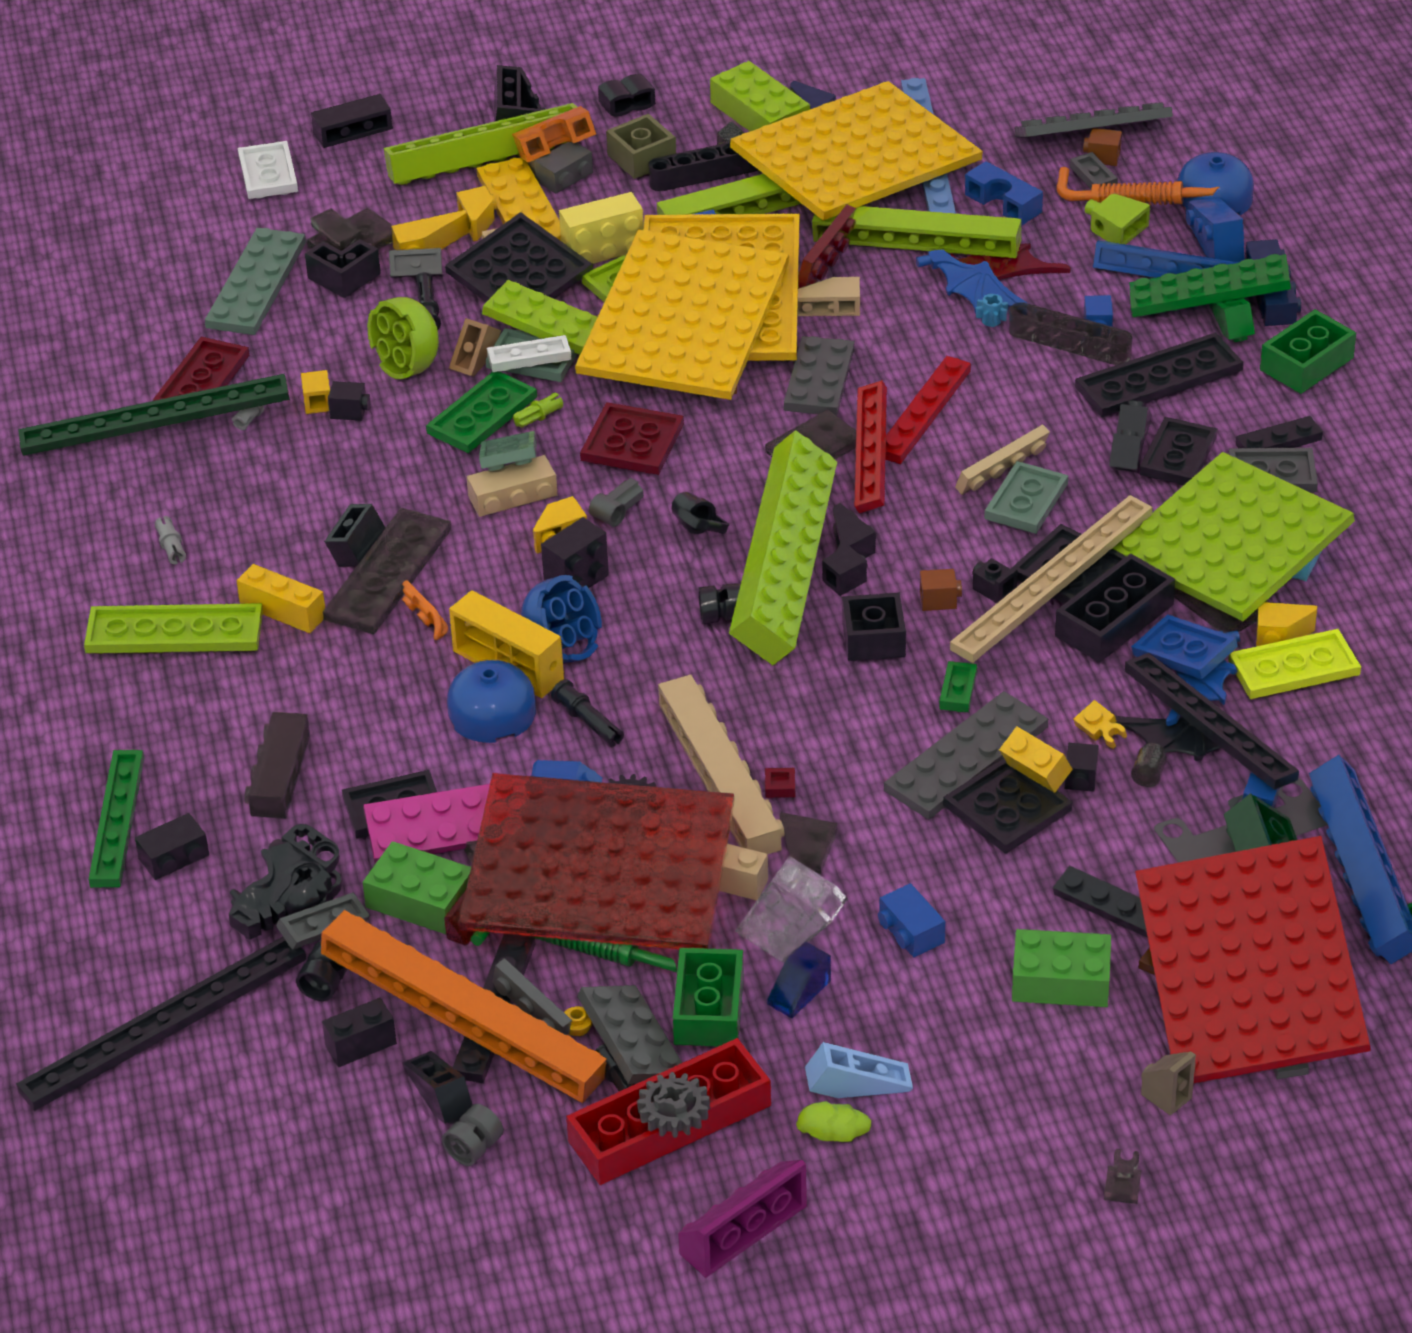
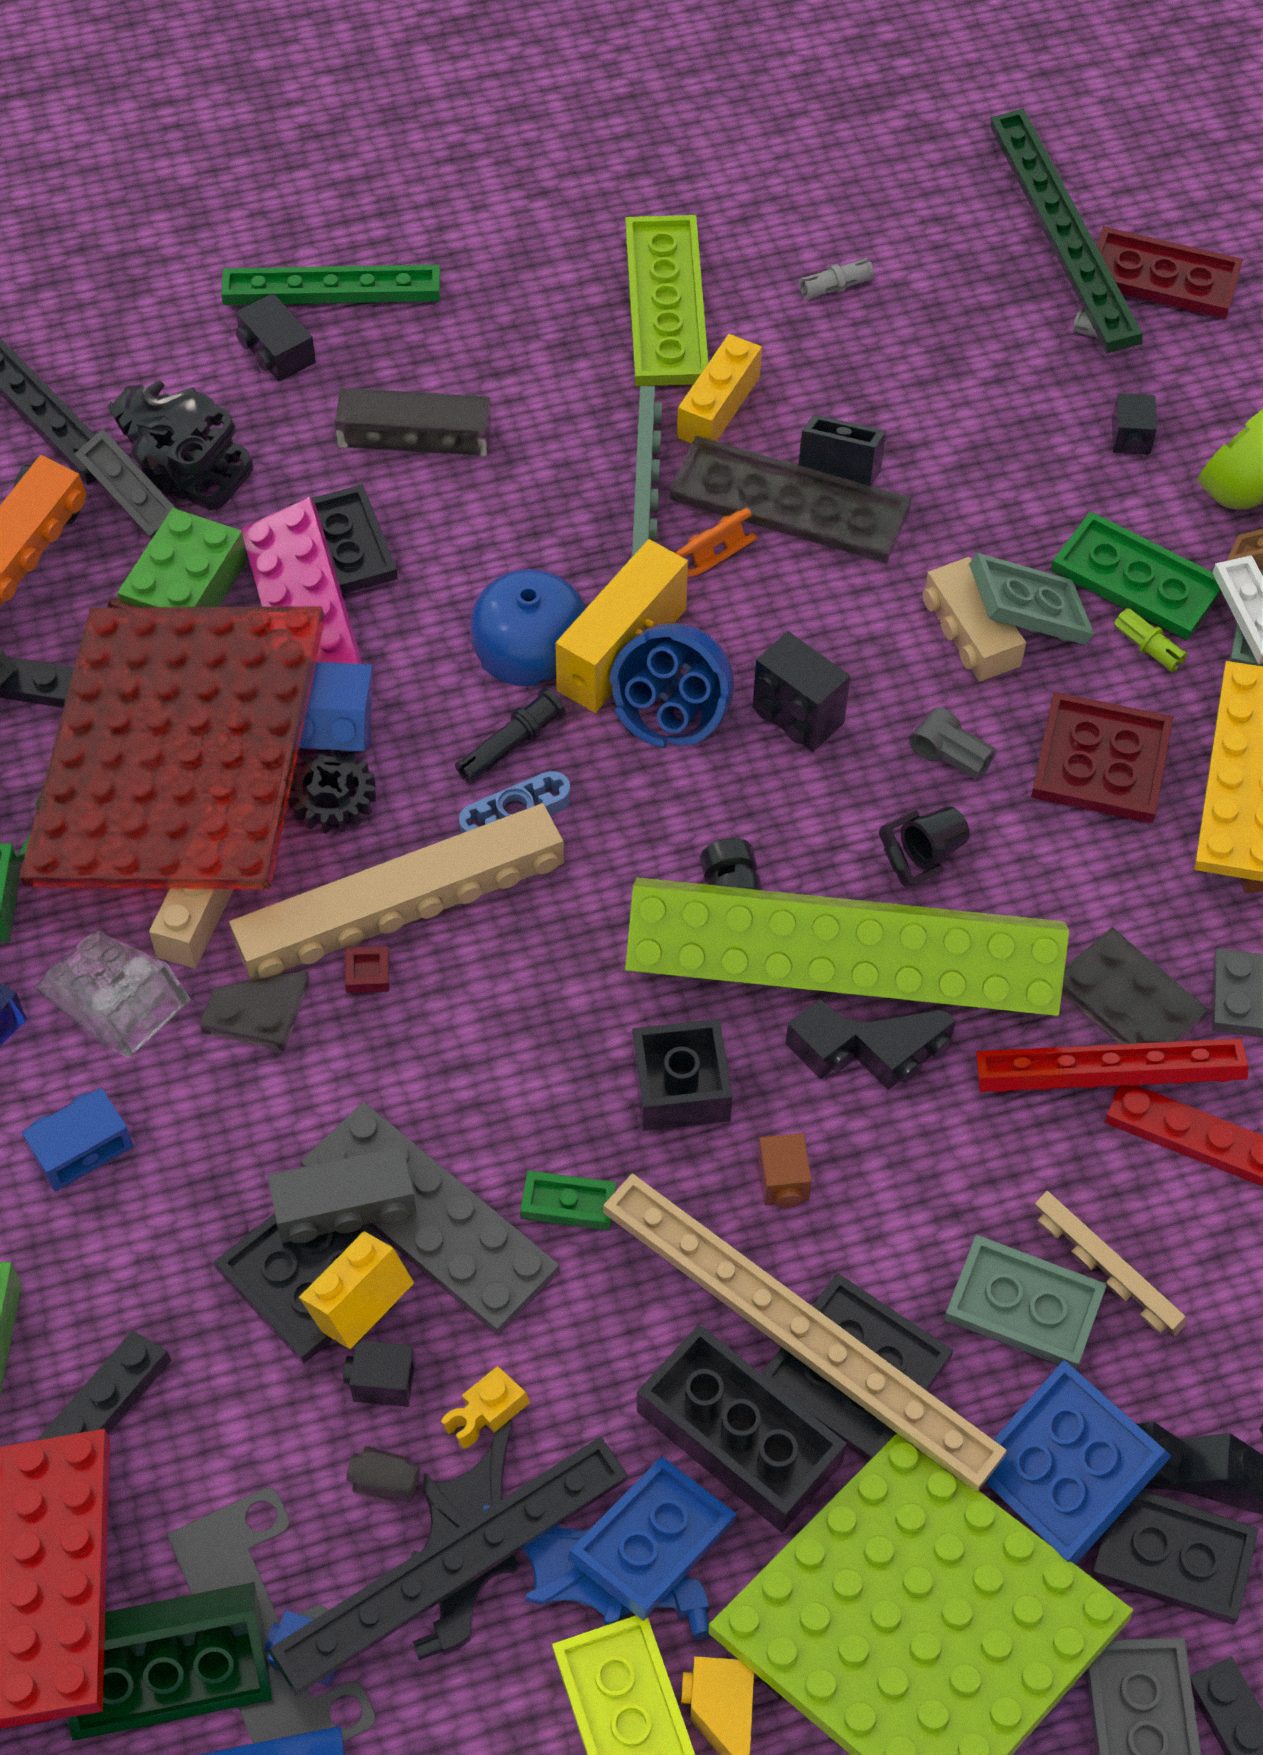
camera: 85 degrees right, 15 degrees up
(315, 391) = (1152, 379): yellow brick -> none
(364, 641) = (646, 468): none -> sand green plate
(555, 519) = (896, 678): yellow slope -> none
(647, 725) = (520, 792): none -> medium blue beam
(965, 774) = (342, 1195): none -> dark grey brick
(994, 579) = (815, 1264): black brick -> none
(1134, 465) = (1073, 1462): none -> blue plate

